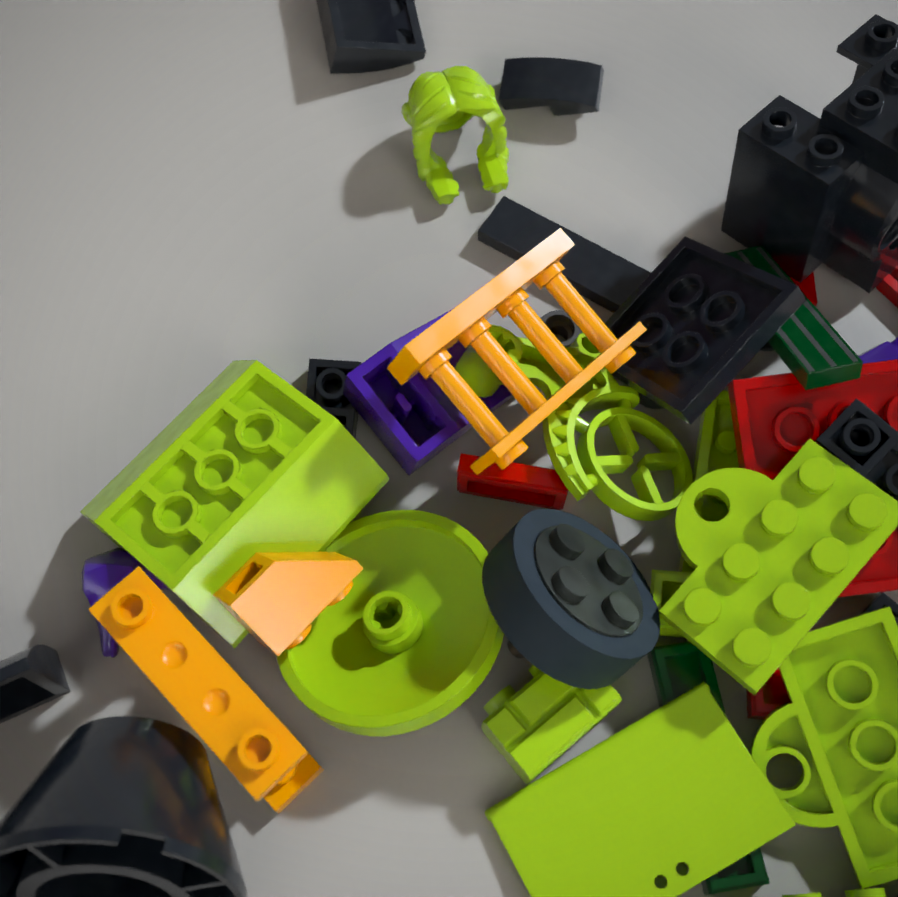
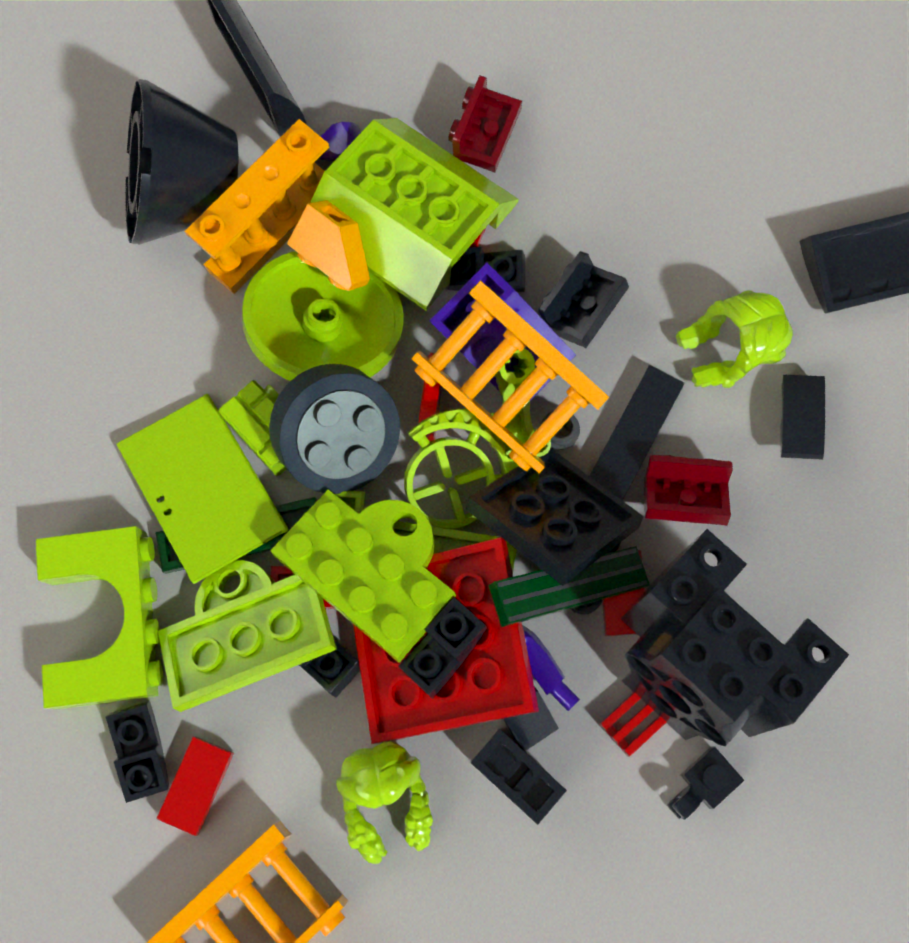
camera: 90 degrees right, 10 degrees up
(120, 391) = (484, 126): none -> dark red bracket
(390, 291) = (582, 300): none -> black bracket
(641, 203) = (687, 490): none -> dark red bracket

